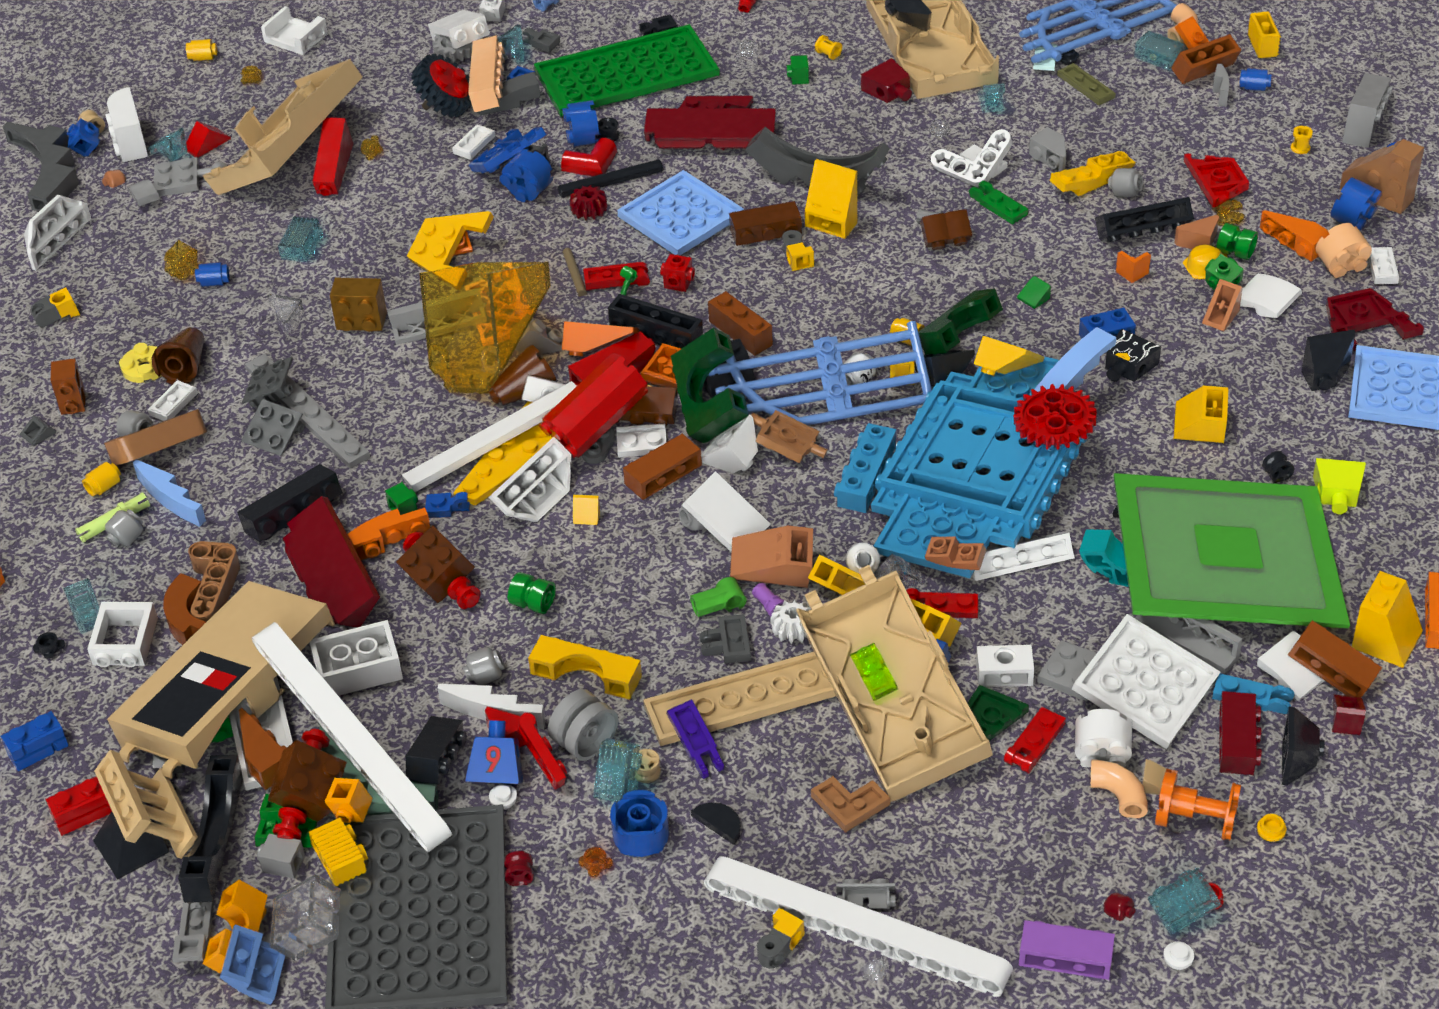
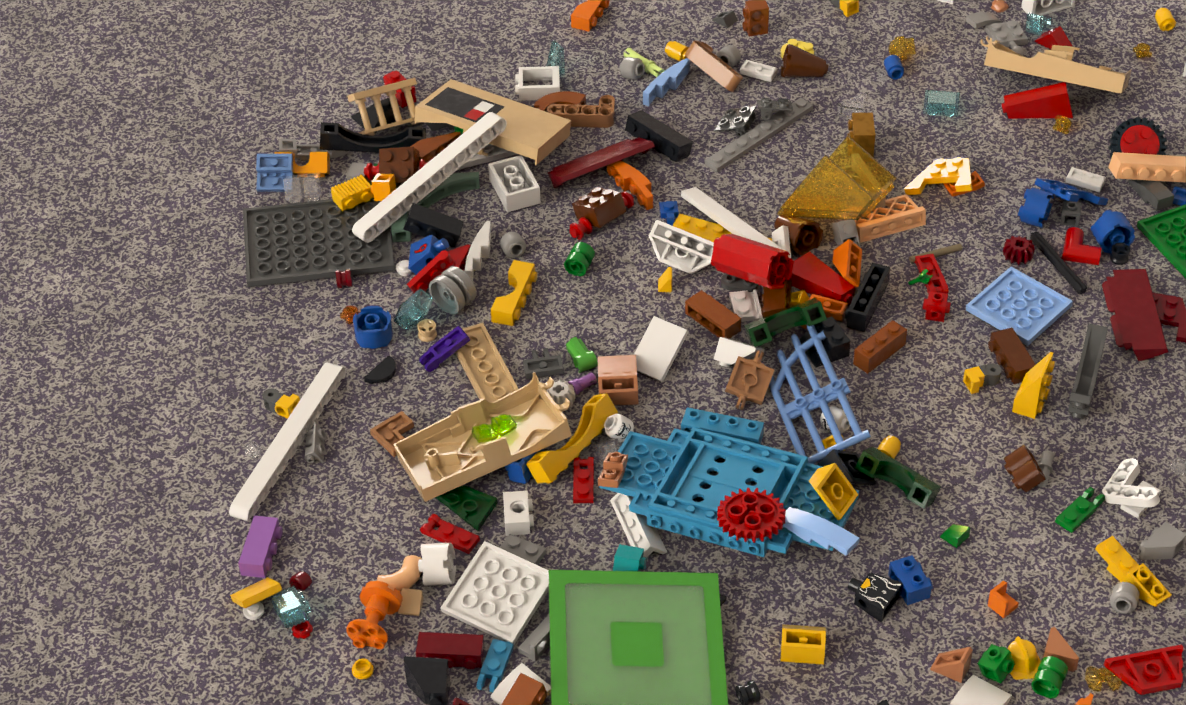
camera: 85 degrees right, 0 degrees up
(34, 740) = (450, 62): blue brick -> none
(48, 644) = (532, 56): black plate -> none
(401, 498) = (666, 188): green plate -> none
(1139, 219) = (1067, 607): black brick -> none
(1158, 945) = (256, 592): none -> yellow tile

